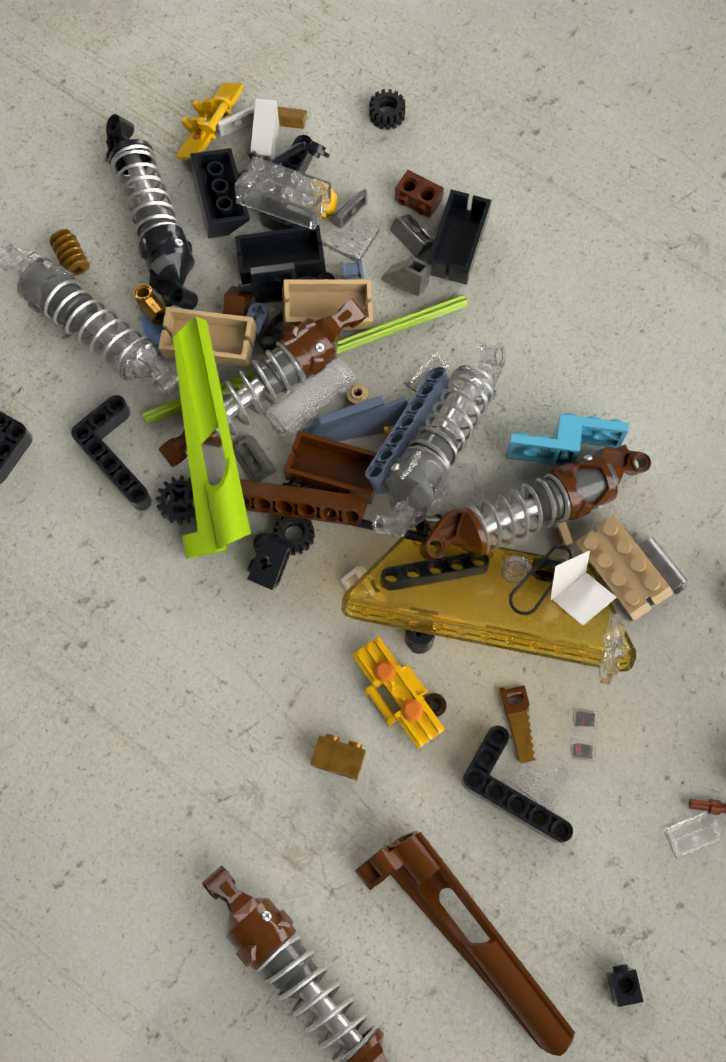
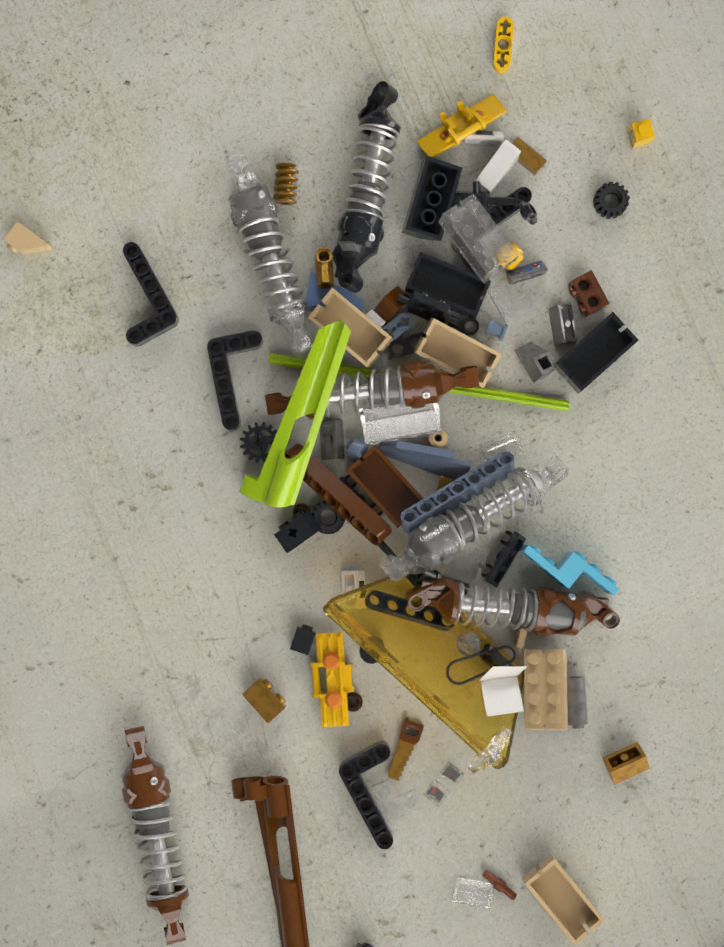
camera: 30 degrees right, 15 degrees up
(207, 34) = (509, 32): none -> yellow beam
(281, 450) = (356, 449): none -> sand blue cone
(342, 670) = (303, 639): none -> black brick
(377, 42) = (641, 133): none -> yellow brick
(496, 469) = (504, 558): none -> black plate

